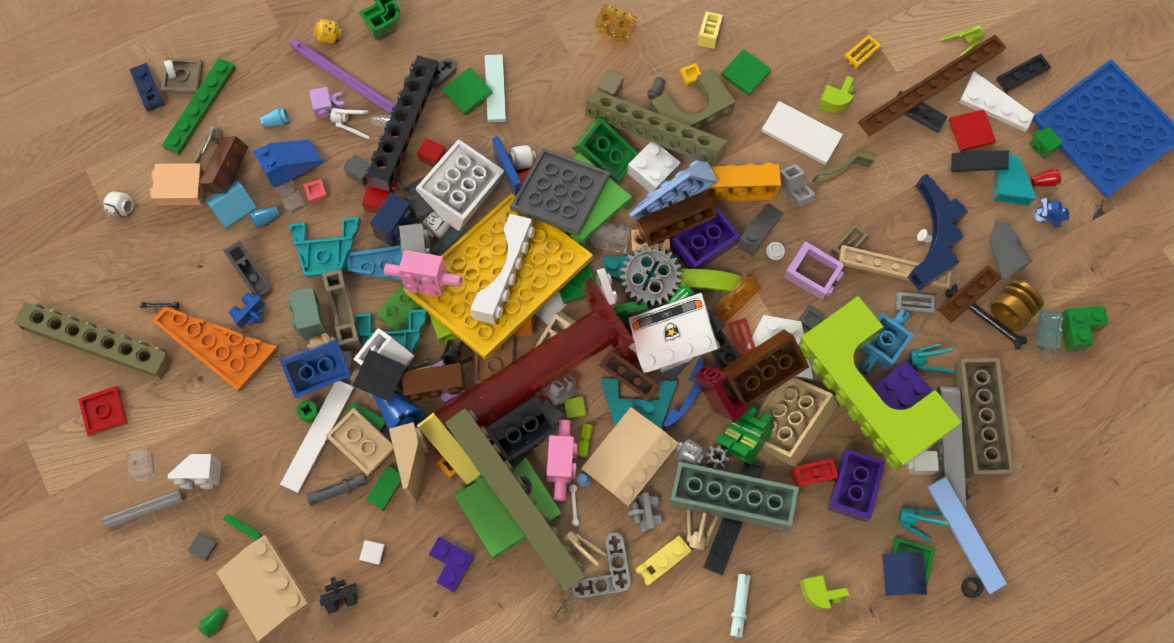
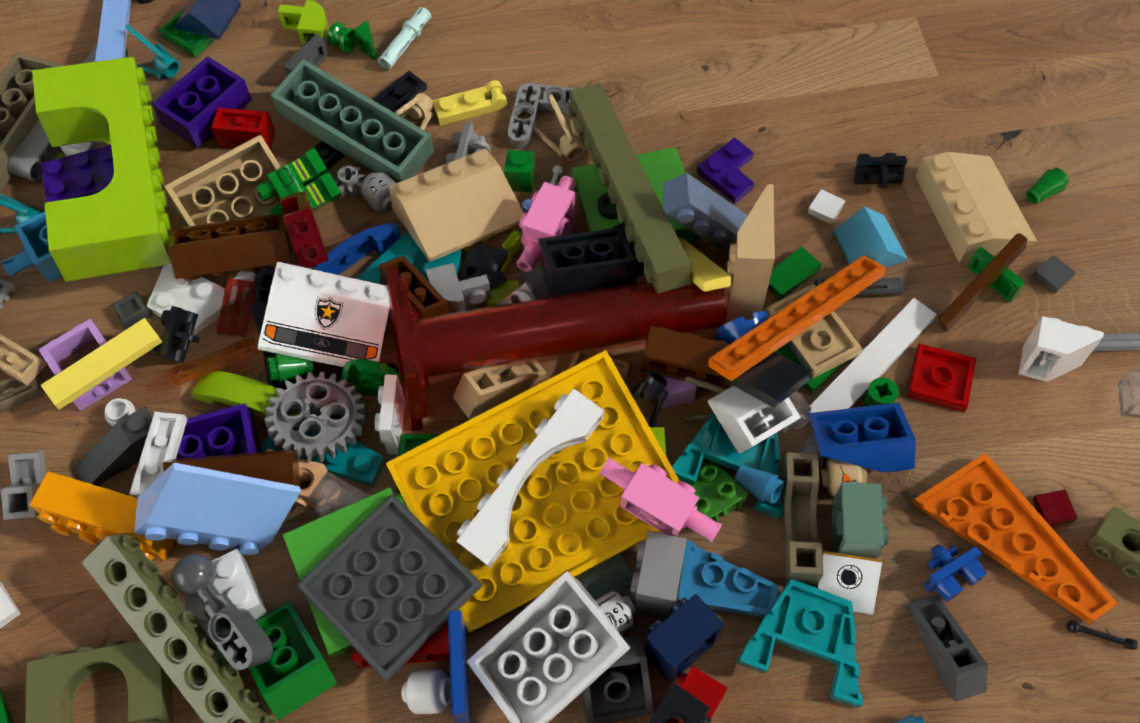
camera: 155 degrees left, 10 degrees down
(191, 372) = (1055, 507): none -> dark red tile
(251, 507) = (982, 282): none -> reddish brown tile
(271, 440) = (941, 377): none -> red tile
(303, 282) = (852, 579): none -> white sticker
(334, 530) = (871, 236): none -> medium azure slope
(368, 433) = (796, 318): none -> orange tile
(370, 321) = (761, 484): none -> dark azure cone
(449, 487) = (702, 210): none -> sand blue brick
(593, 421) = (484, 262): none -> black plate
(599, 504) = (520, 170): none -> green brick
(607, 387) = (458, 292): none -> light grey brick
(634, 143) = (230, 628): none -> dark grey beam
(726, 217) = (160, 446): none -> white tile
(765, 304) = (177, 334): none -> black hips
(767, 590) = (364, 39): none -> green slope
(788, 588) = (341, 36): none -> green wheel
(797, 265) = (101, 363): none -> light yellow tile
(806, 547) = (313, 51): none -> dark grey plate

